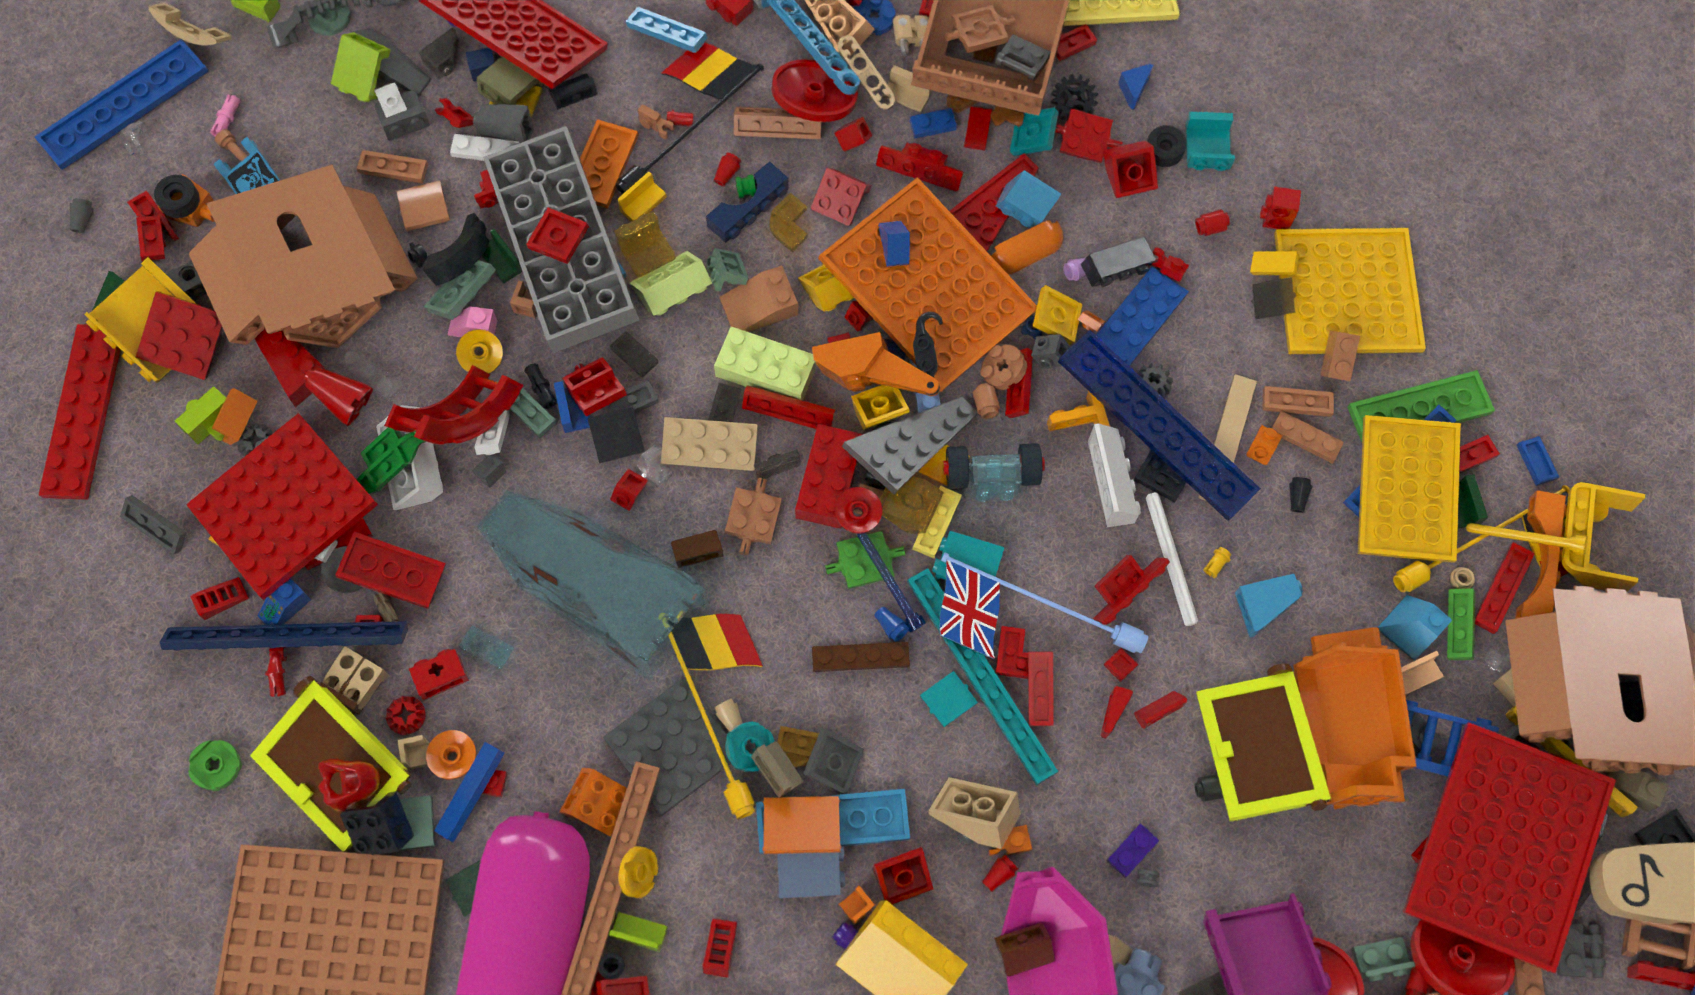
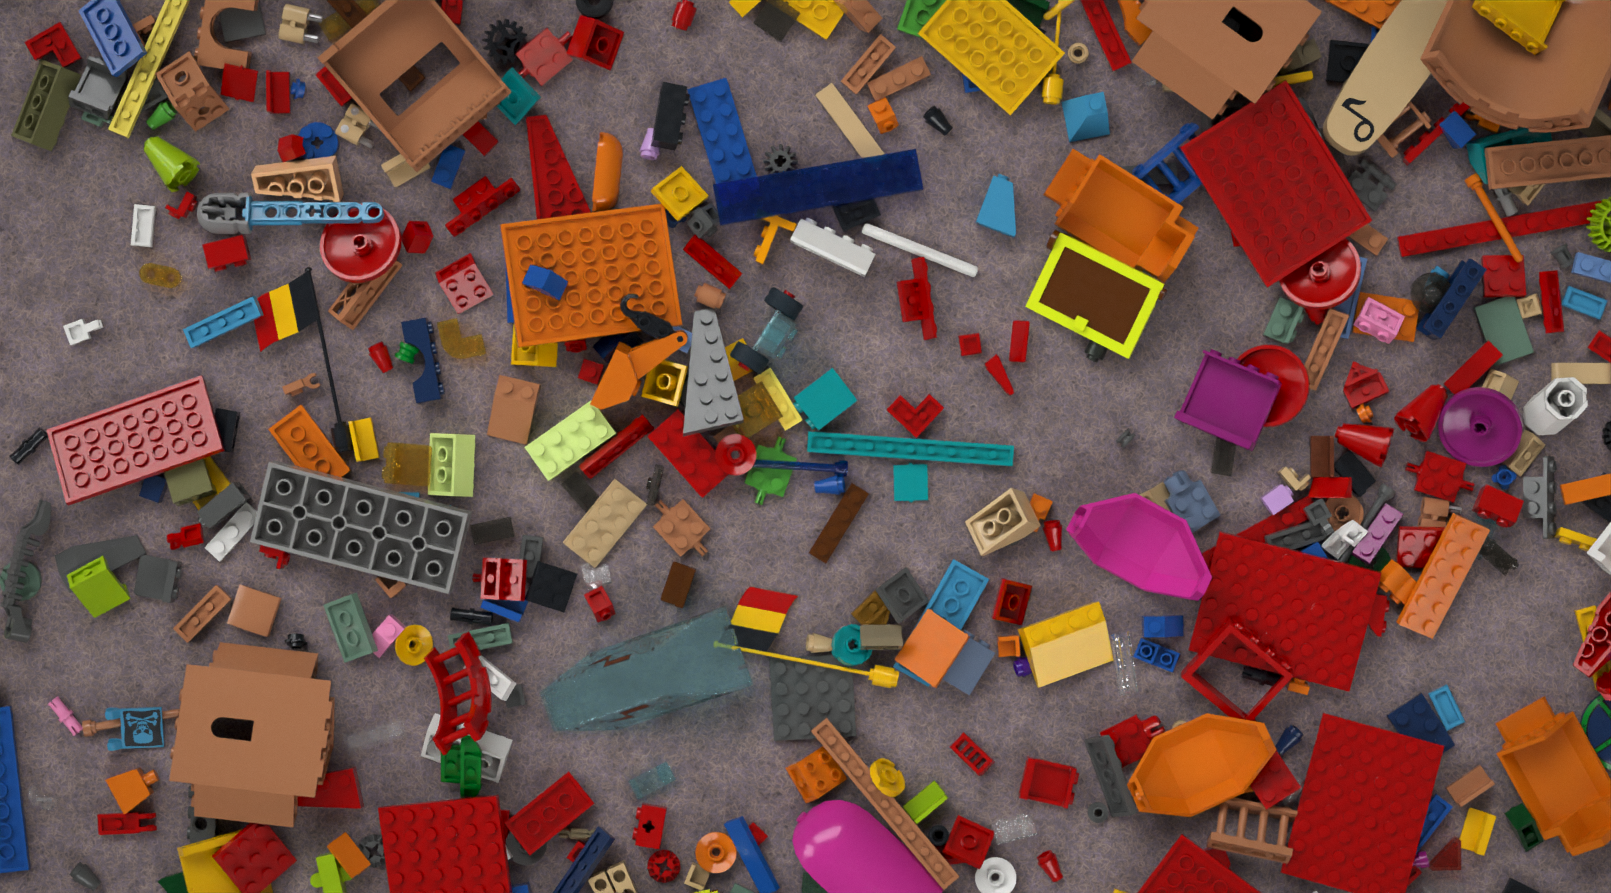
camera: 50 degrees left, 20 degrees up
(150, 238) = (148, 835): red panel -> none
(181, 207) = (139, 795): black tyre -> none
(338, 393) = (383, 770): red cone -> none
(390, 99) = (145, 580): white plate -> none
(441, 54) = (123, 513): clear smoke slope -> none
(460, 255) = (323, 607): black arch -> none
(501, 258) = (341, 580): dark green panel -> none
(557, 235) = (367, 531): red plate -> none
(680, 118) = (309, 363): red pin -> none
(727, 267) = (470, 416): sand green bracket -> none
(868, 71) = (372, 195): tan beam -> none
(973, 604) = (859, 420): flag -> none
(980, 28) = (399, 77): nougat plate -> none
(995, 359) = (685, 272): nougat plate -> none
(1023, 57) = (445, 57): dark grey plate -> none
(1025, 949) = (1114, 555): reddish brown panel -> none
(1027, 199) = (573, 150): dark azure slope -> none
(1040, 688) = (949, 416): red plate -> none
(1091, 321) = (700, 170): orange plate -> none
(1132, 850) = (1100, 433): dark purple plate -> none
(1171, 266) = (698, 74): red plate -> none
(1217, 562) = (945, 219): yellow pin -> none
(1421, 673) = (1121, 143): light nougat panel -> none
(1462, 627) = (1109, 82): bright green plate -> none

